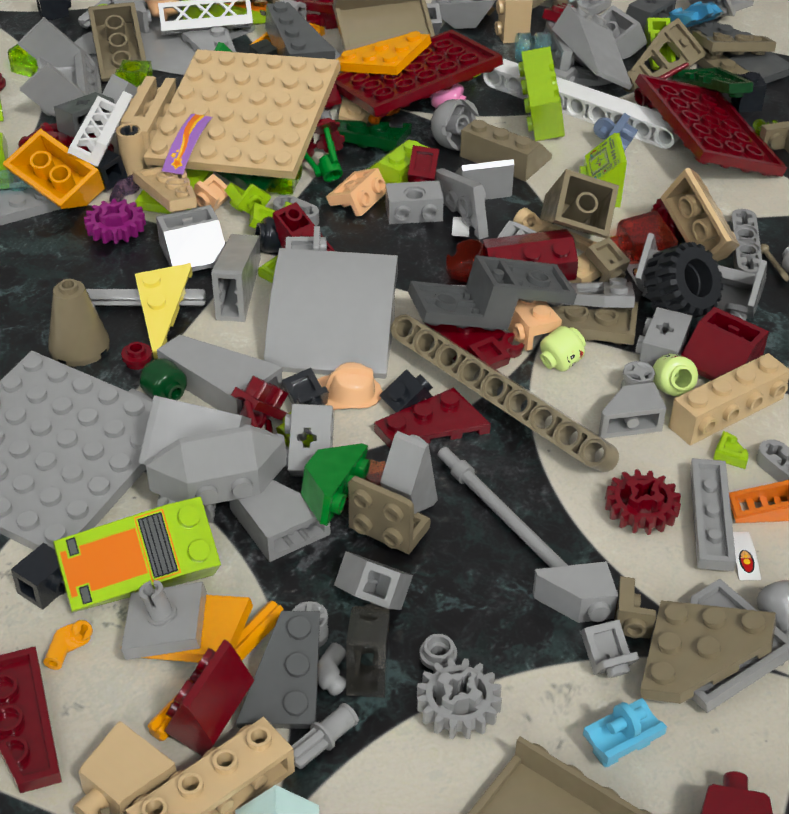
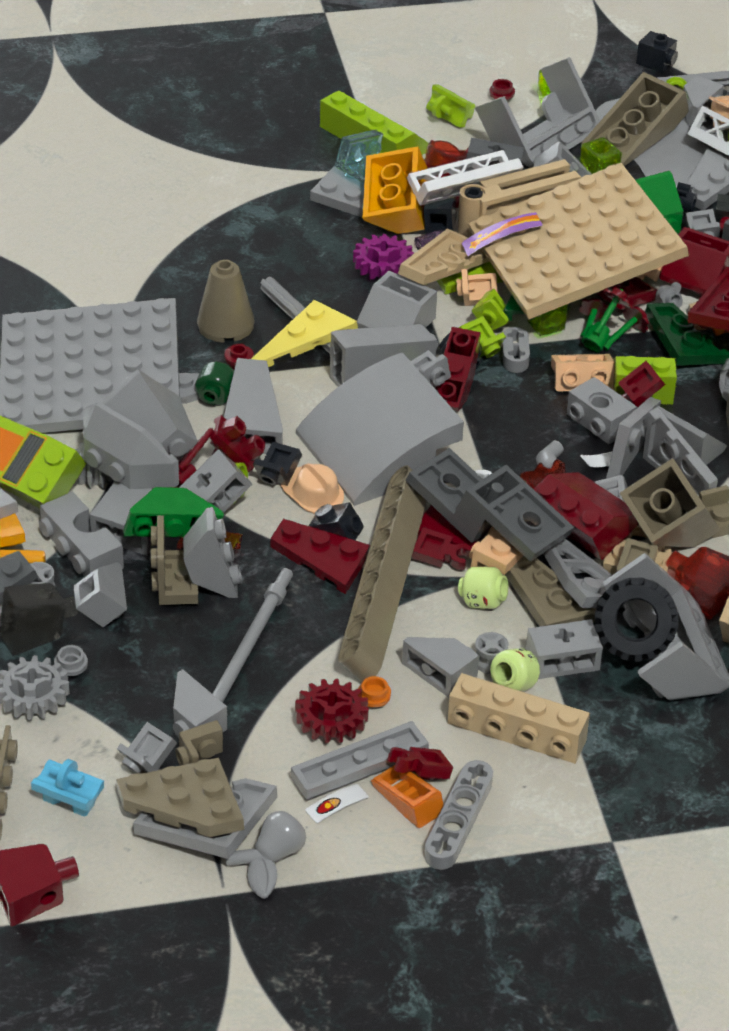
camera: 55 degrees right, 0 degrees up
(57, 130) = (443, 153): none -> clear red hair
(302, 570) = (68, 526): none -> light grey arch
(436, 253) = (550, 454): none -> light grey arm
(510, 190) = (665, 443): none -> light grey wing
(632, 461) = (376, 691): none -> orange plate
(724, 343) = (586, 683): dark red slope -> none
(731, 451) = (460, 748): lime tile -> none
(745, 474) = (424, 761): none -> dark red plate

